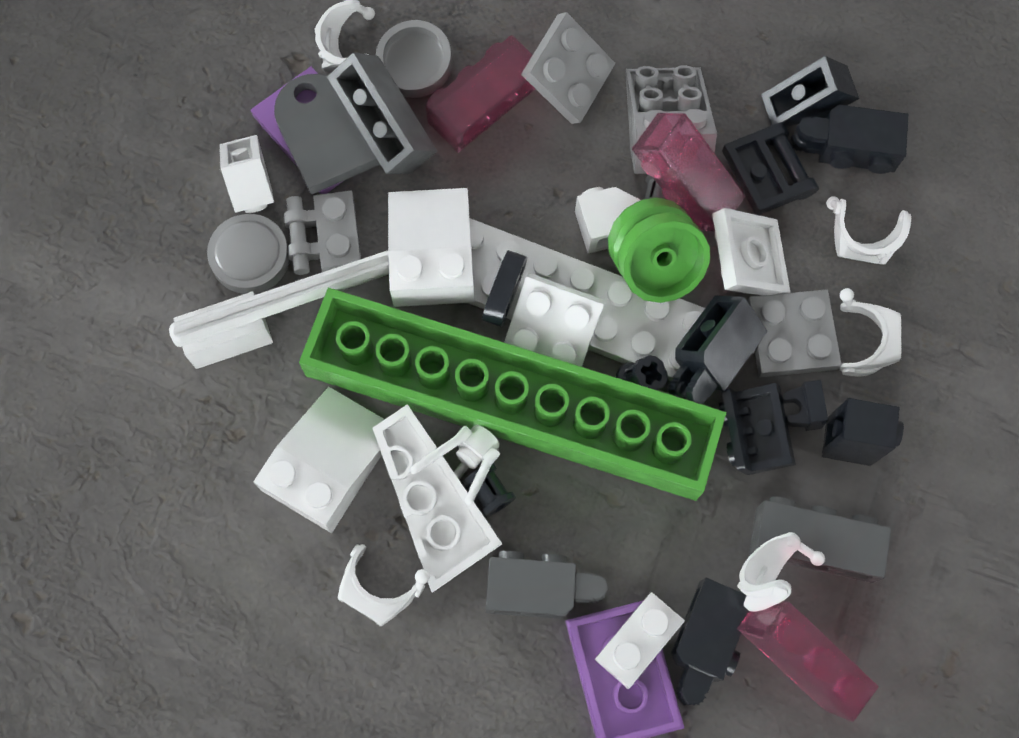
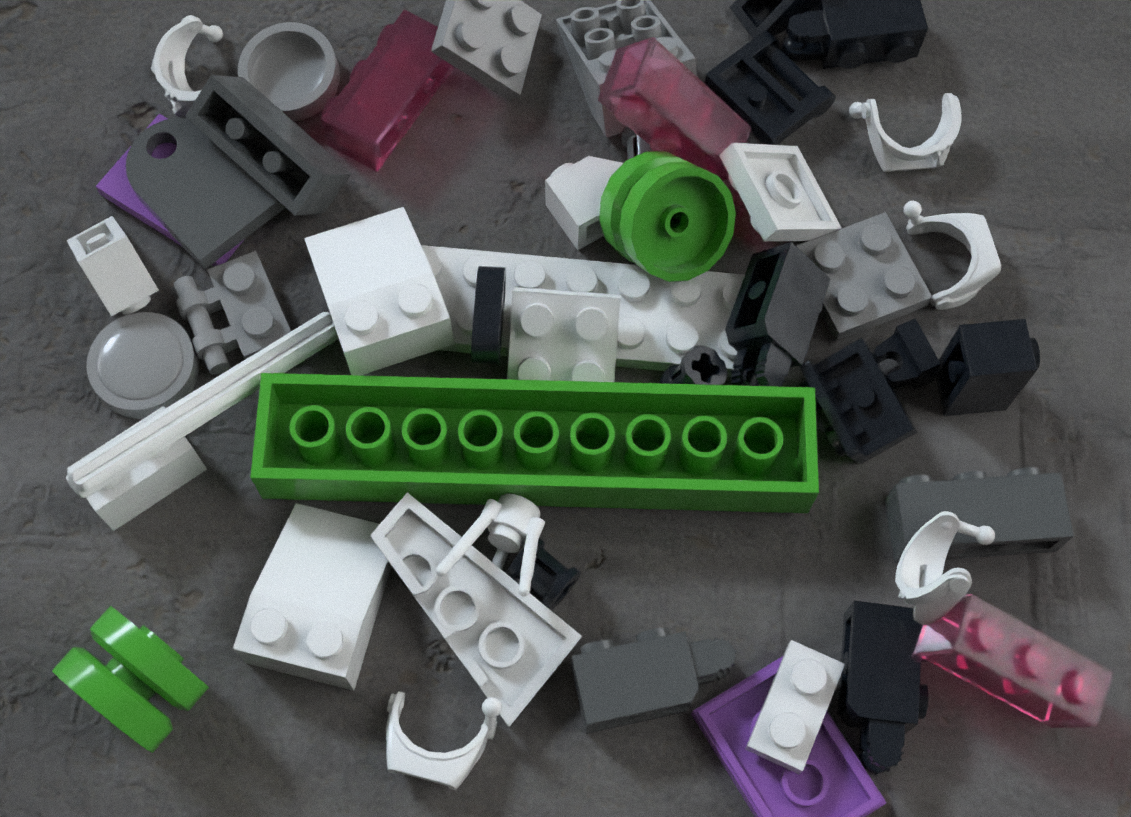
camera: 15 degrees left, 5 degrees down
(171, 486) = (131, 678): none -> bright green wheel

